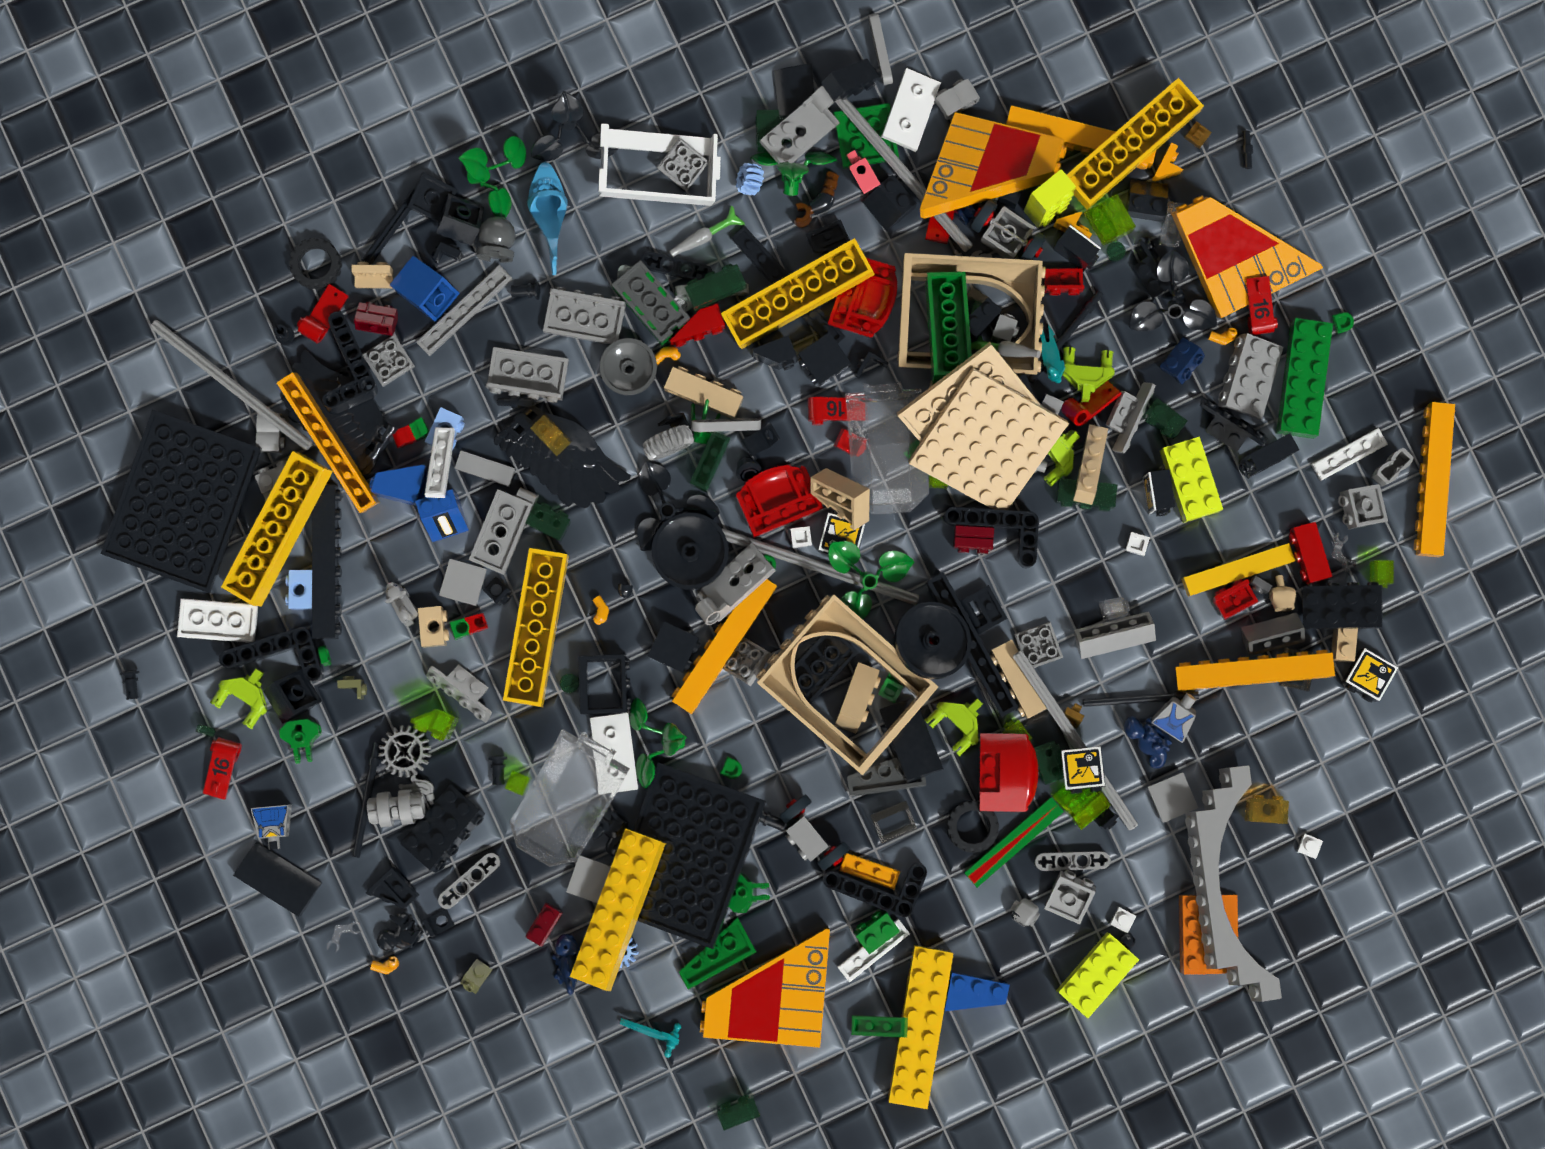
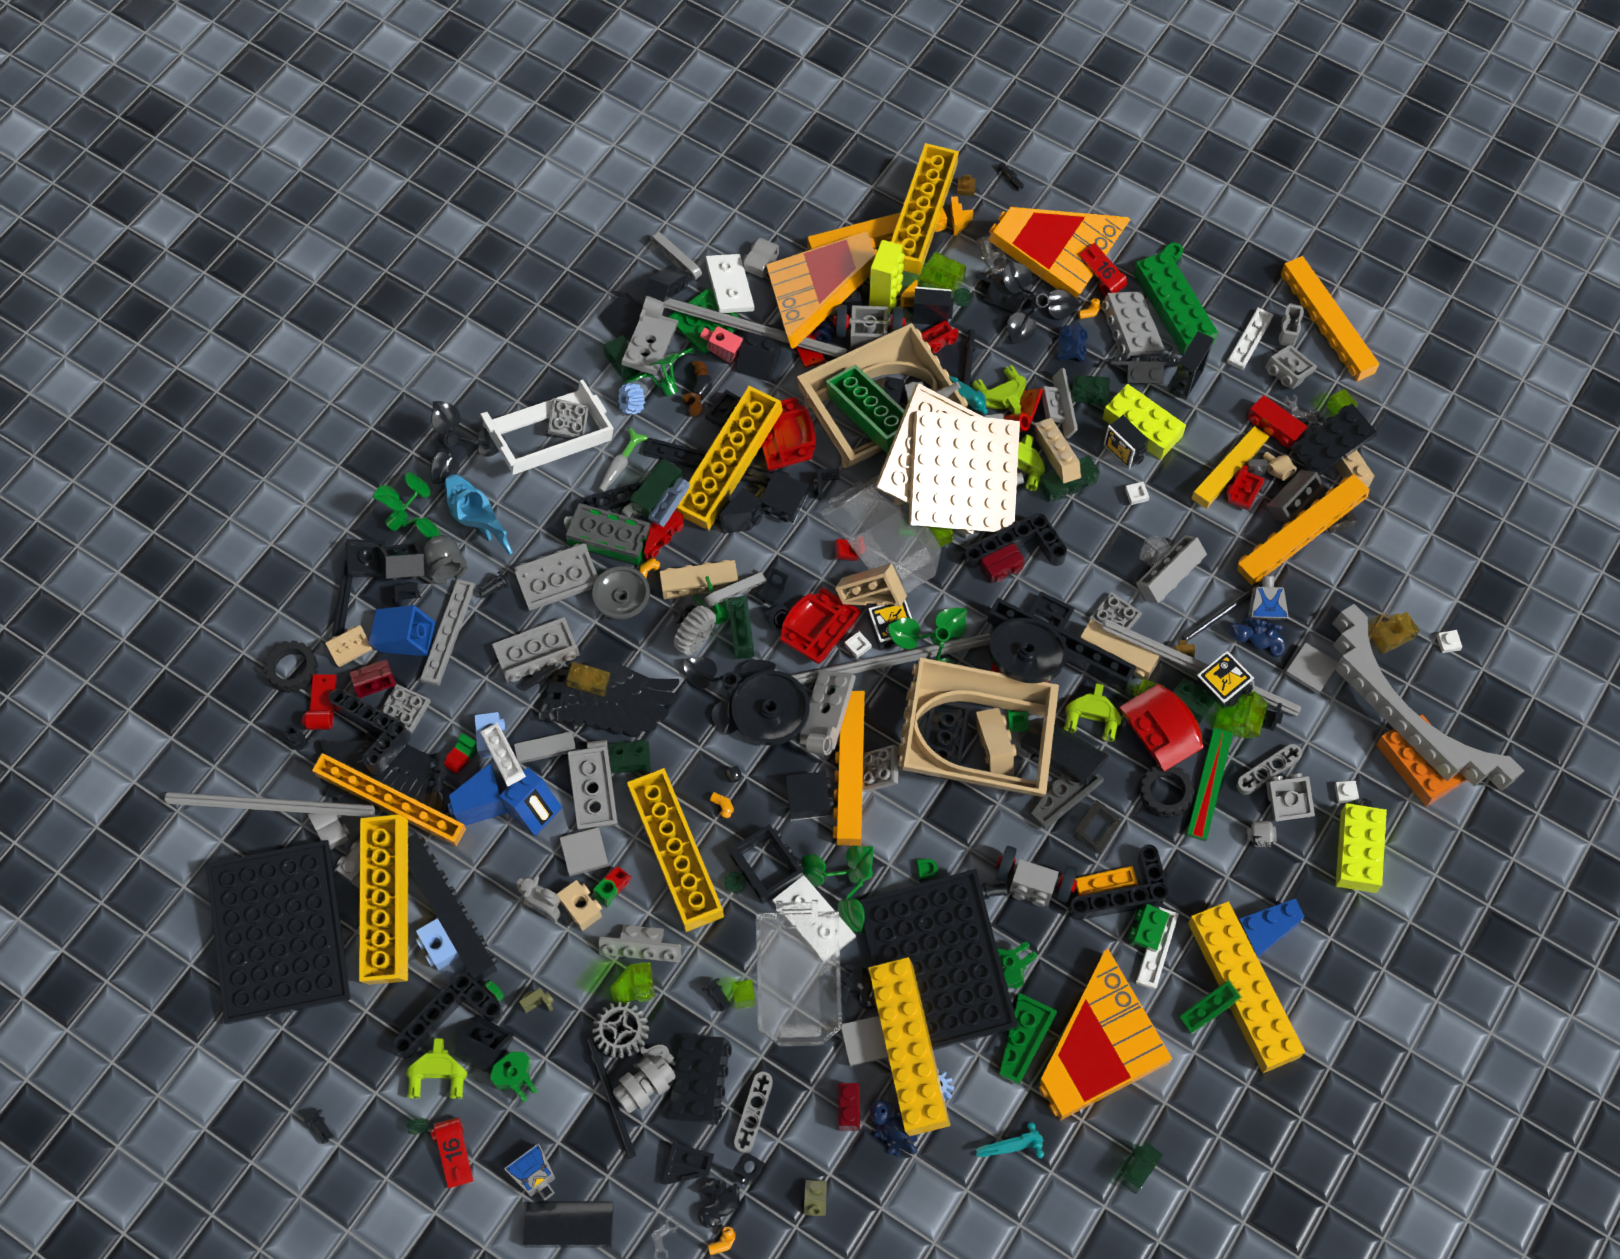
camera: 30 degrees left, 20 degrees down
(217, 620) = (372, 1019): white plate -> none
(503, 597) = (629, 842): black bracket -> none
(717, 309) = (669, 502): none -> sand blue hinge
(826, 408) = (809, 534): red door -> none
(1147, 200) = (963, 248): black slope -> none
(1369, 675) = (1393, 484): piece -> none

